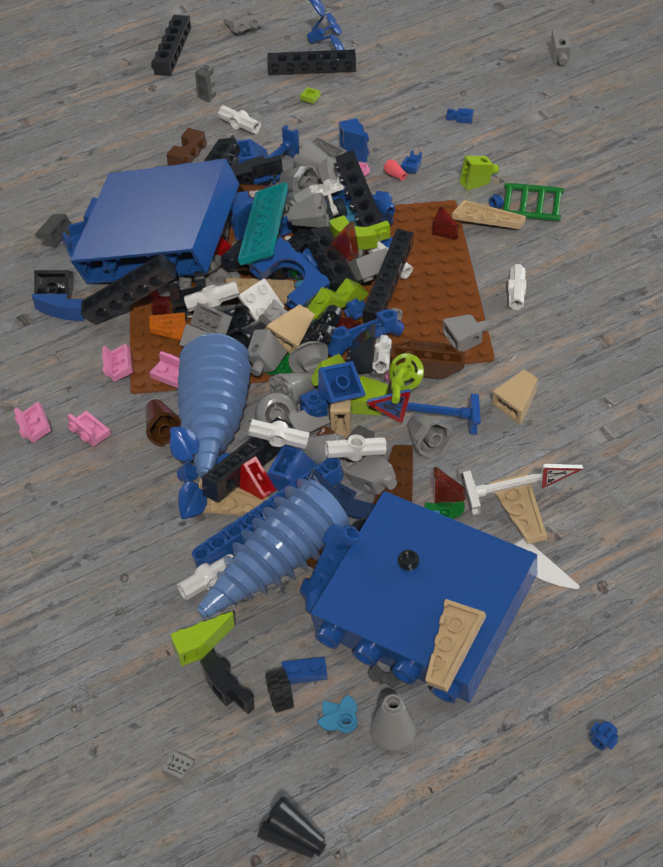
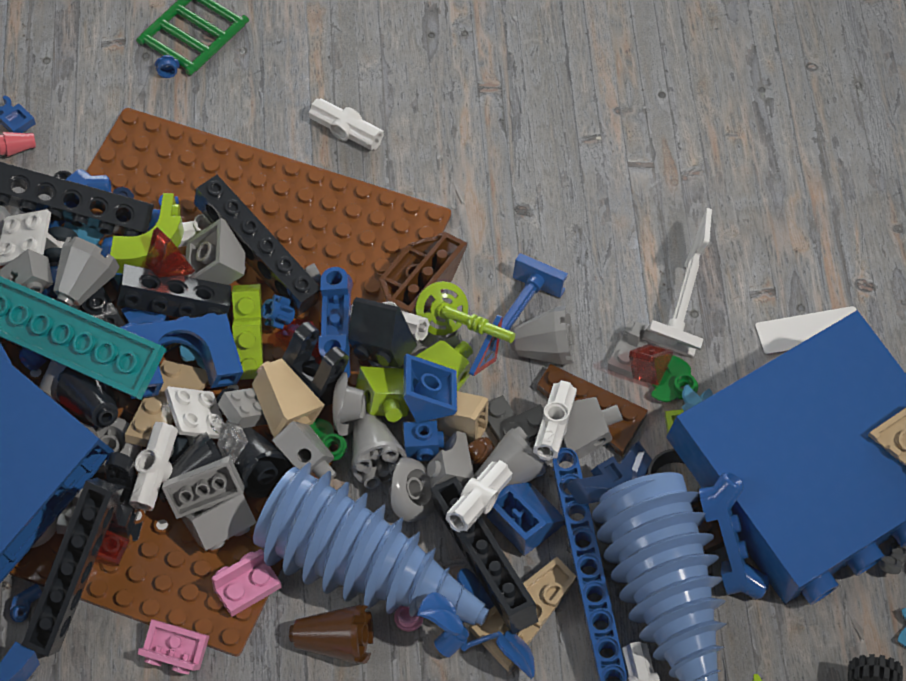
camera: 65 degrees left, 10 degrees up
(168, 325) = (151, 549): orange wing -> none
(248, 317) = (231, 439): none -> clear plate
(255, 479) = (527, 560): red slope -> none
(305, 670) = (841, 641): blue plate -> none
(408, 560) = (795, 442): black plate -> none
(444, 225) = (181, 139): clear red slope -> none
(464, 331) = (399, 216): light grey torso -> none
(477, 172) = (99, 46): lime torso -> none
(484, 214) = (187, 89): tan wing -> none
(516, 395) = (538, 217): tan slope -> none
(523, 511) = (717, 302): tan wing -> none

